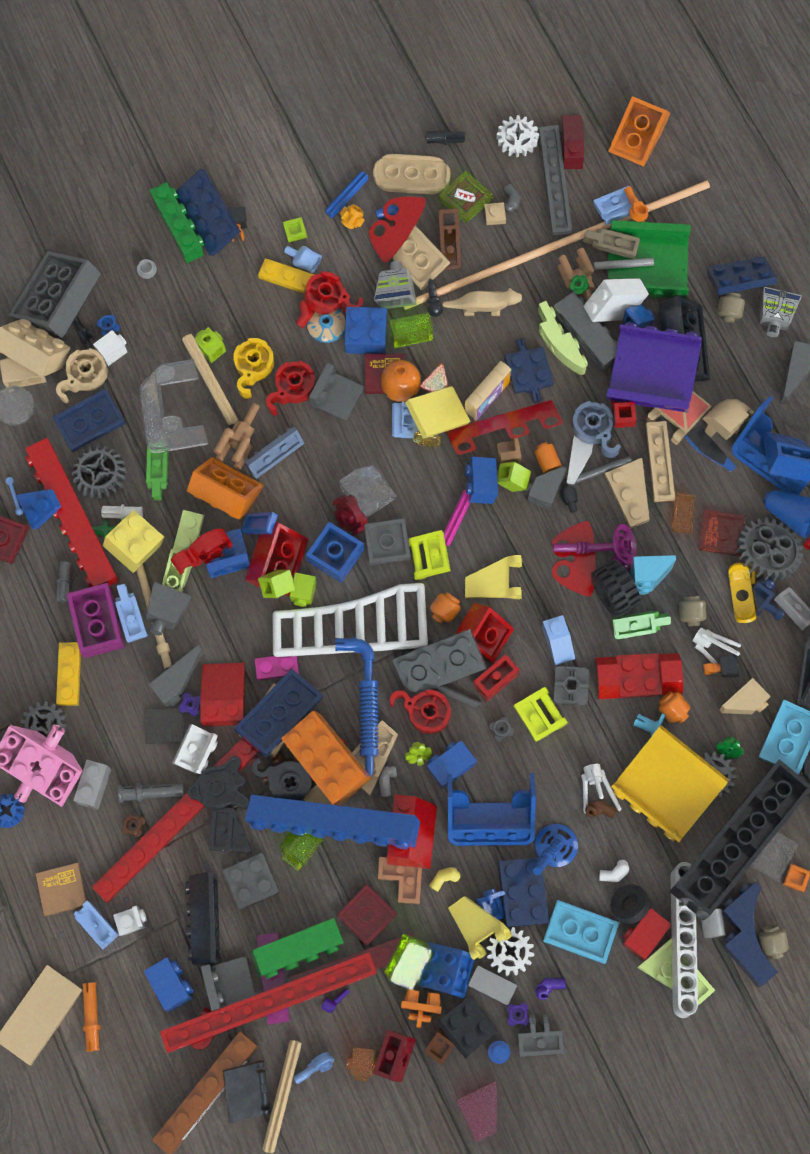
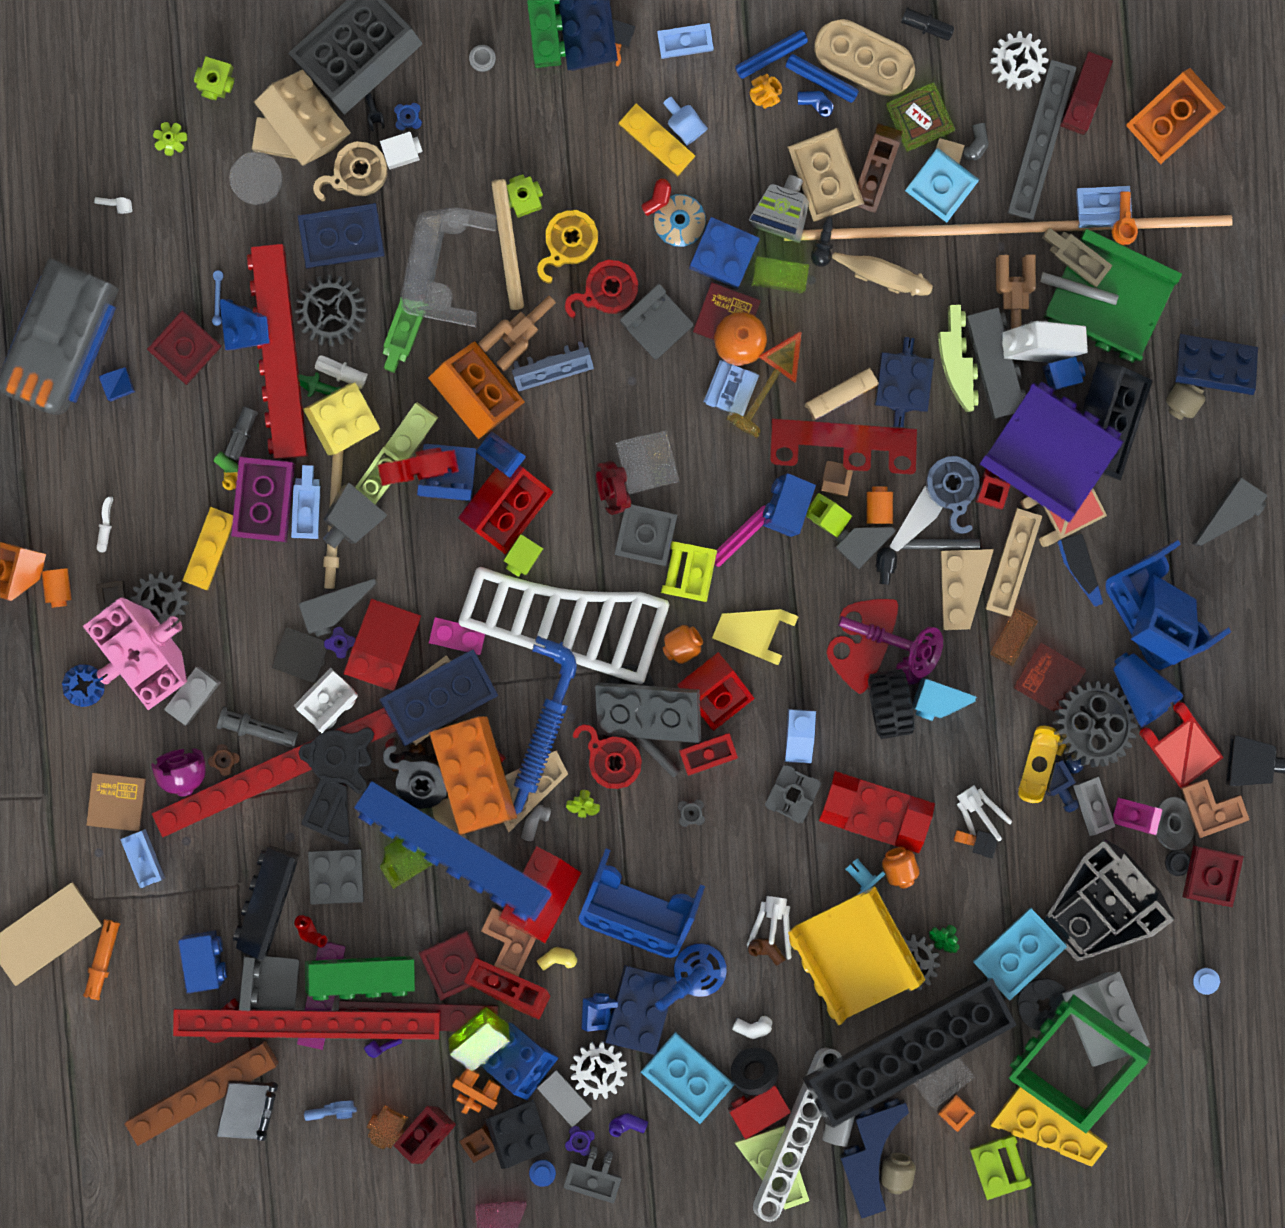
camera: 15 degrees right, 15 degrees up
(64, 610) = (230, 470): none -> arm
(102, 845) = (180, 772): none -> magenta cylinder
(130, 920) = (182, 868): white bracket -> none
(244, 932) = (308, 931): none -> red arm
(276, 583) = (493, 543): lime brick -> none
(281, 1096) = (284, 1127): tan axle -> none
(283, 206) = (685, 40): none -> light blue plate
(294, 229) = (687, 78): lime plate -> none
(335, 296) = (705, 192): red piece -> none
(335, 552) = (577, 526): blue brick -> none
(380, 195) = (822, 78): none -> blue axle
(405, 220) = (808, 140): red piece -> none
(416, 914) = (508, 988): none -> red slope
(437, 412) = (769, 400): light yellow tile -> none
(454, 761) = (616, 832): blue brick -> none
(477, 925) = (572, 1028): light yellow flag -> none
(499, 232) = (942, 185): none -> medium azure tile
(534, 717) = (734, 816): neon yellow plate -> none
(584, 284) = (1015, 305): green plate -> none
(639, 624) = (903, 753): hinge -> none
(692, 610) = (972, 761): dark tan head -> none
(728, 418) = (1116, 544): tan brick -> none
(747, 700) = (989, 891): tan slope -> none
(777, 309) = (1240, 426): torso -> none

